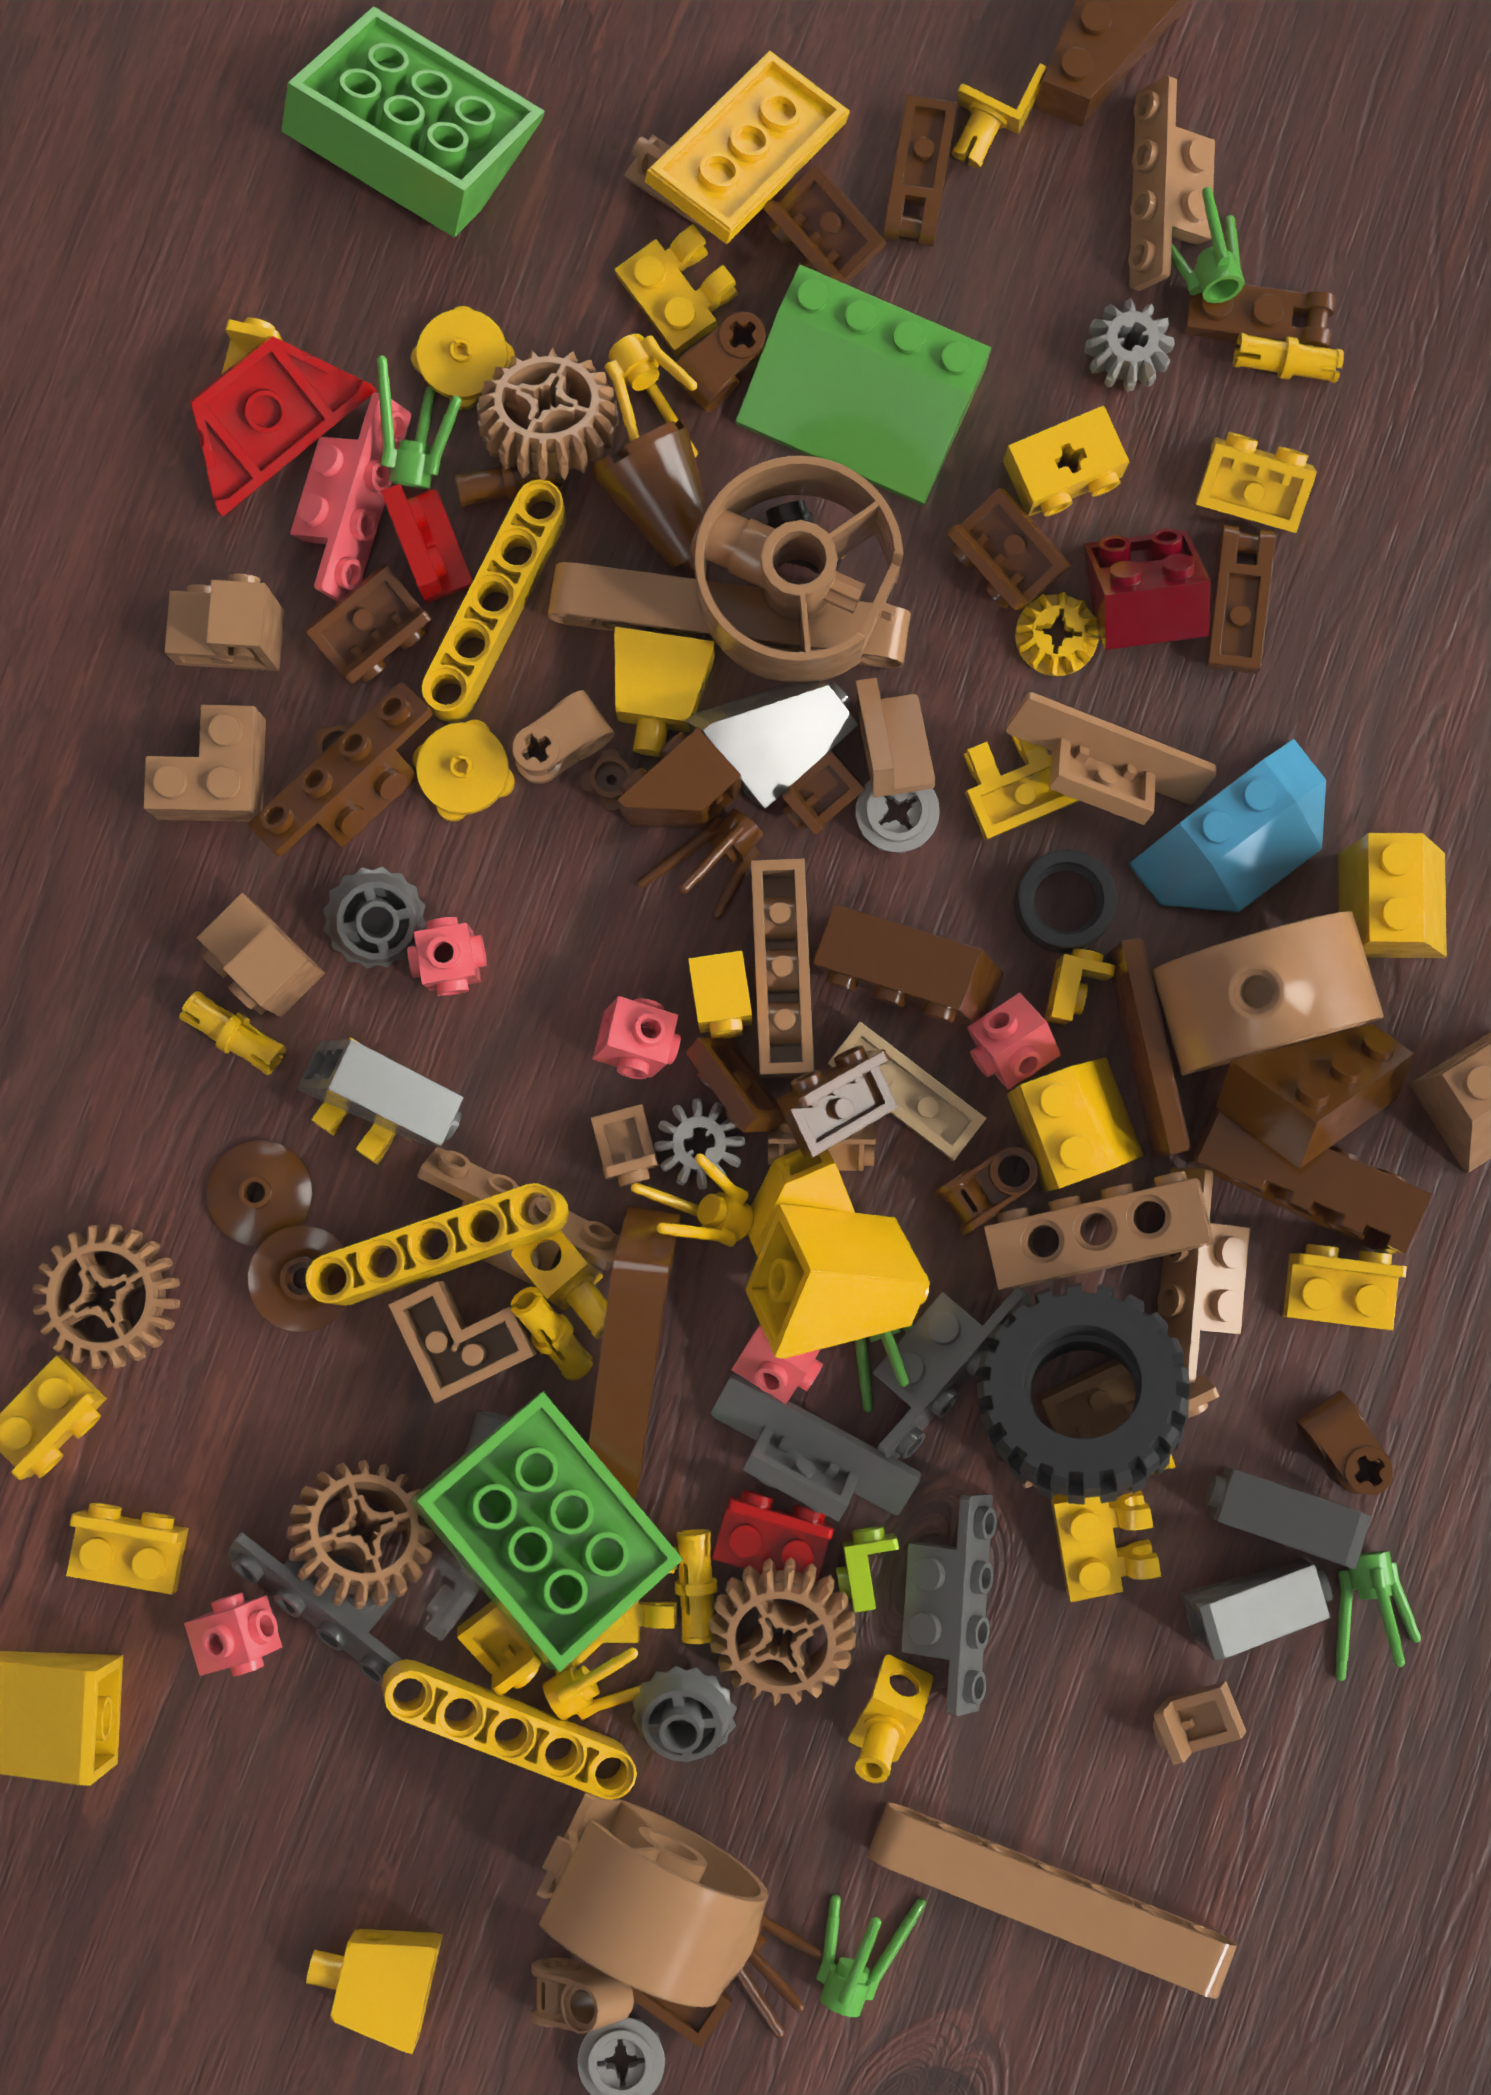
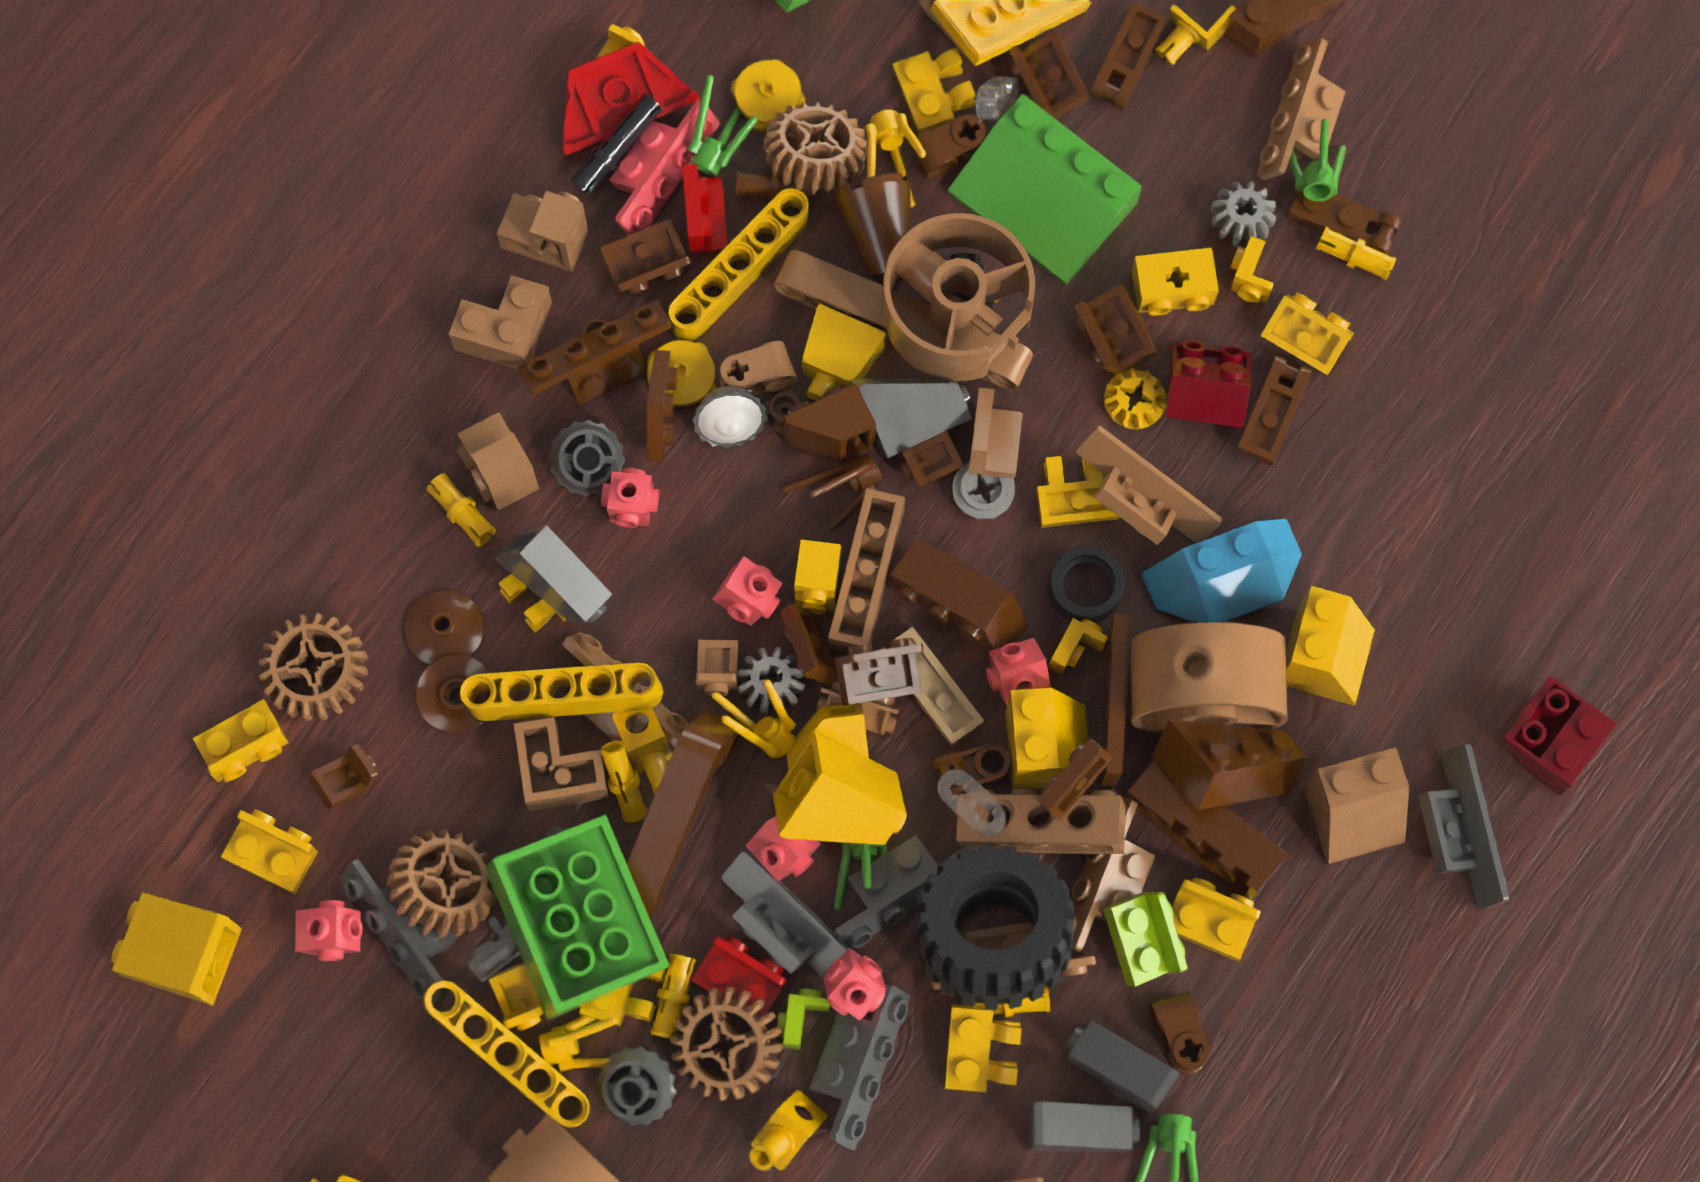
camera: 15 degrees right, 10 degrees down
(192, 1429) = (344, 777): none -> reddish brown bracket
(281, 492) = (616, 144): none -> black pin
(449, 824) = (660, 405): none -> reddish brown plate
(543, 811) = (729, 417): none -> white piece
(766, 279) = (996, 97): none -> clear beam
(923, 1513) = (854, 984): none -> coral brick
(1011, 1225) = (978, 795): none -> clear beam
(1122, 1196) = (1083, 768): none -> reddish brown plate
(1151, 412) = (1245, 283): none -> yellow bracket
(1269, 1340) = (1145, 937): none -> lime bracket

